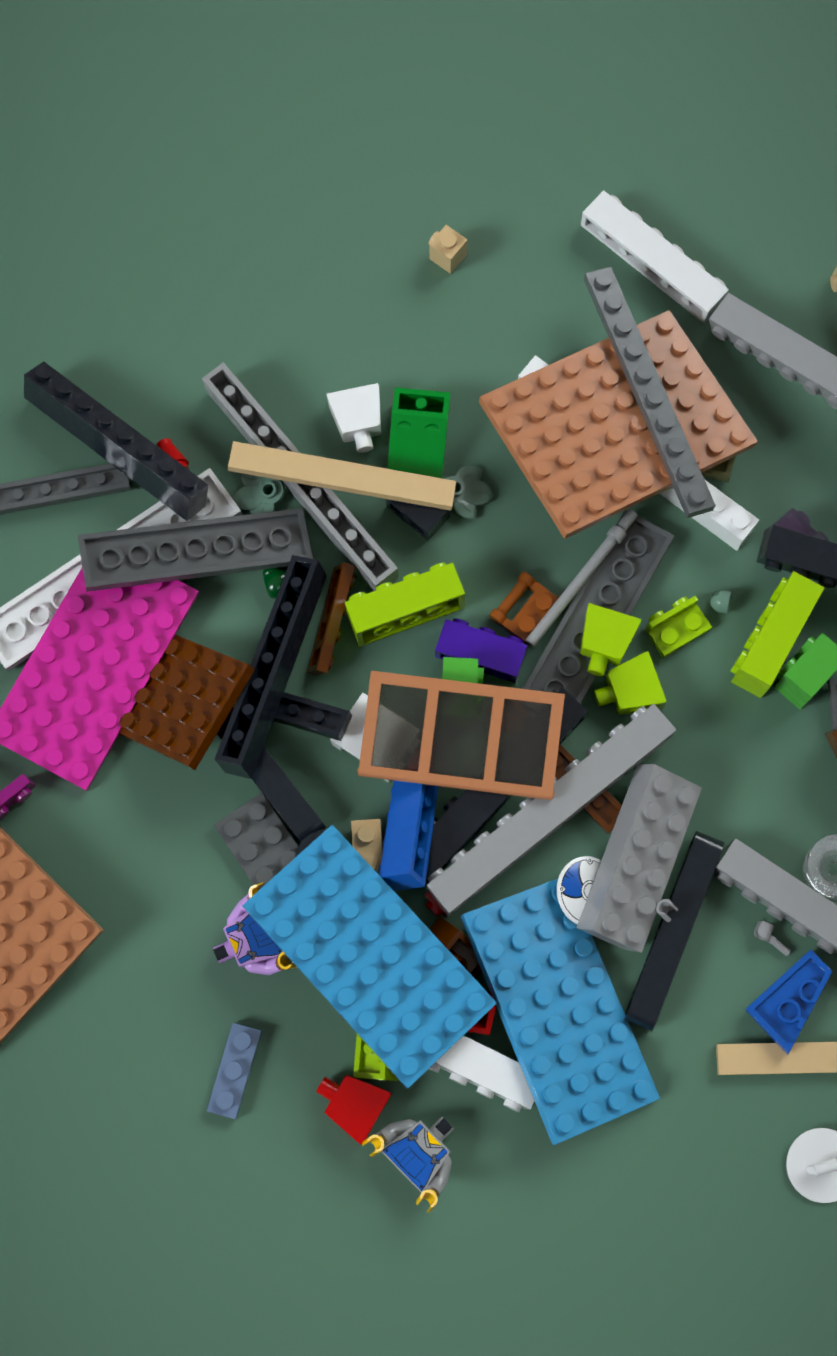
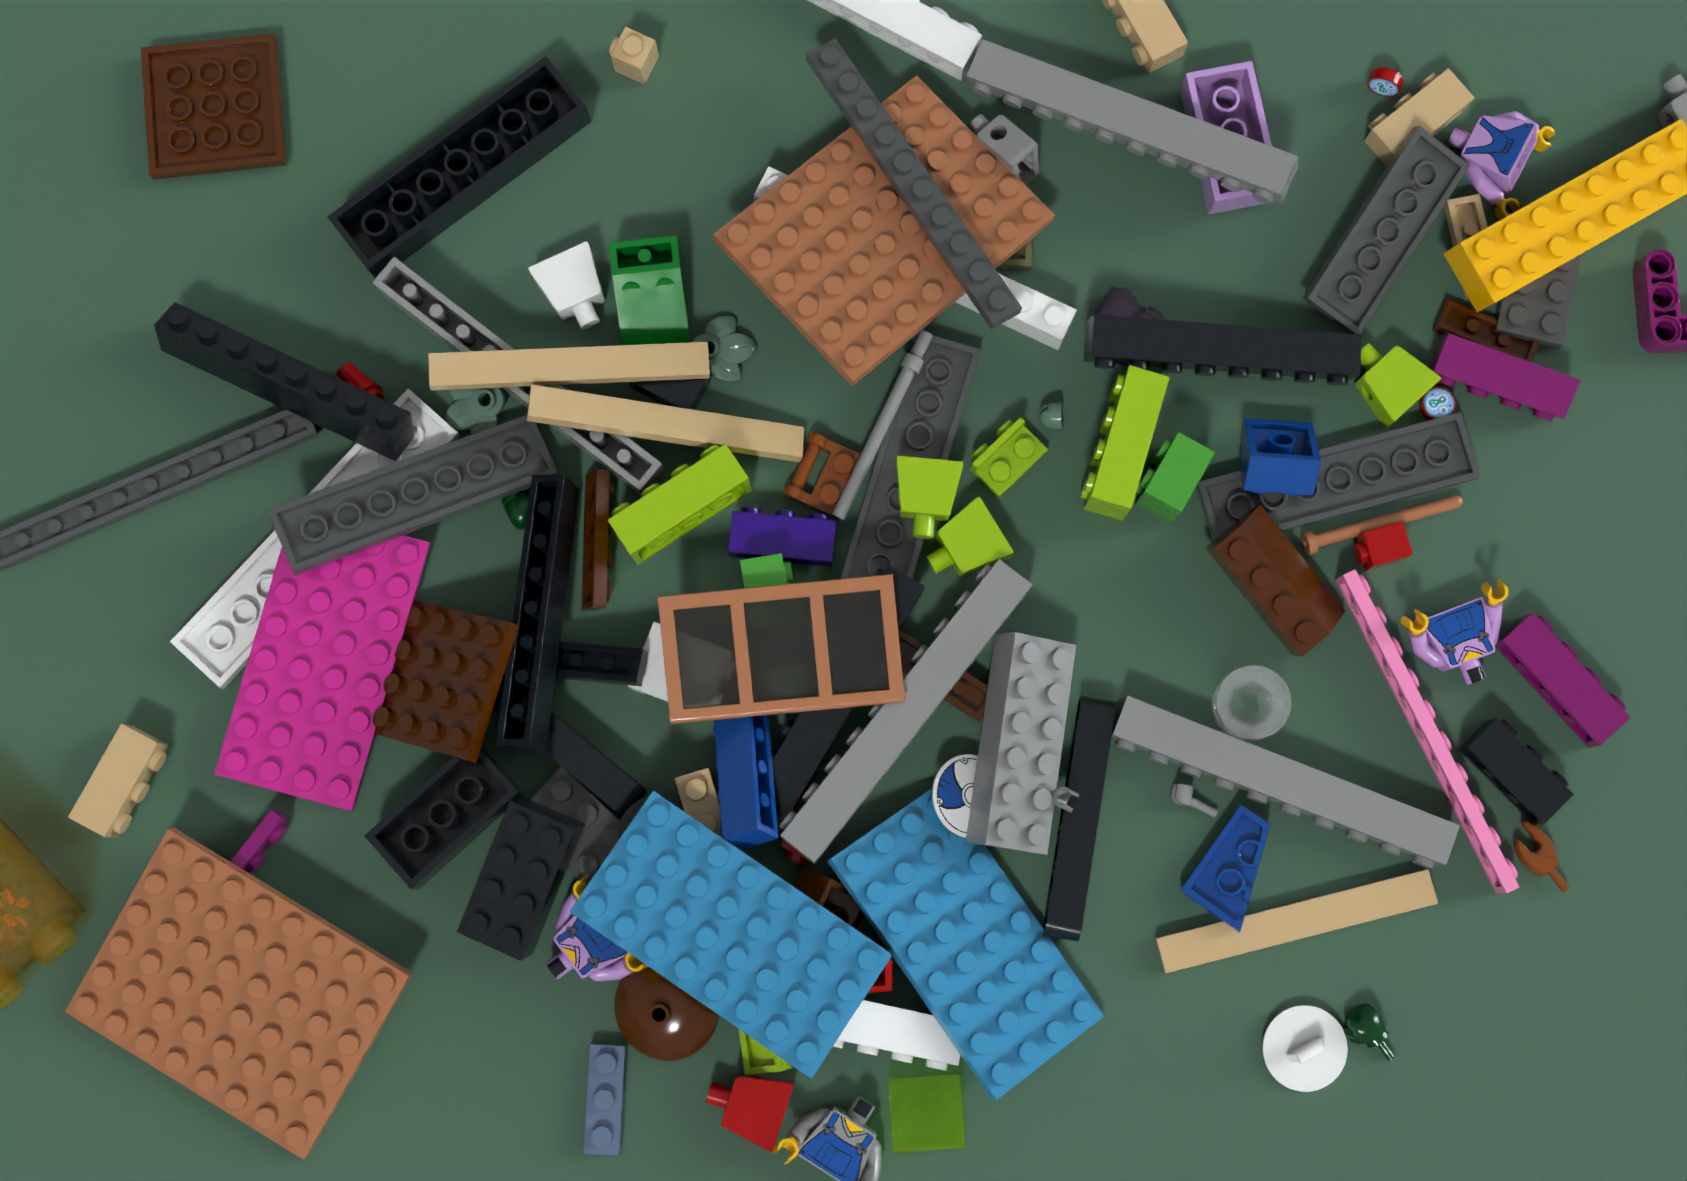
camera: 15 degrees left, 5 degrees up
(110, 220) = (213, 106): none -> reddish brown plate
(158, 810) = (443, 817): none -> black brick
(208, 873) = (520, 878): none -> black brick
(292, 306) = (461, 167): none -> black brick
(301, 1032) = (671, 1038): none -> reddish brown dish
(407, 537) = (664, 423): none -> tan tile
(495, 1144) = (926, 1113): none -> clear neon green plate
(732, 379) = (1008, 145): none -> light grey torso

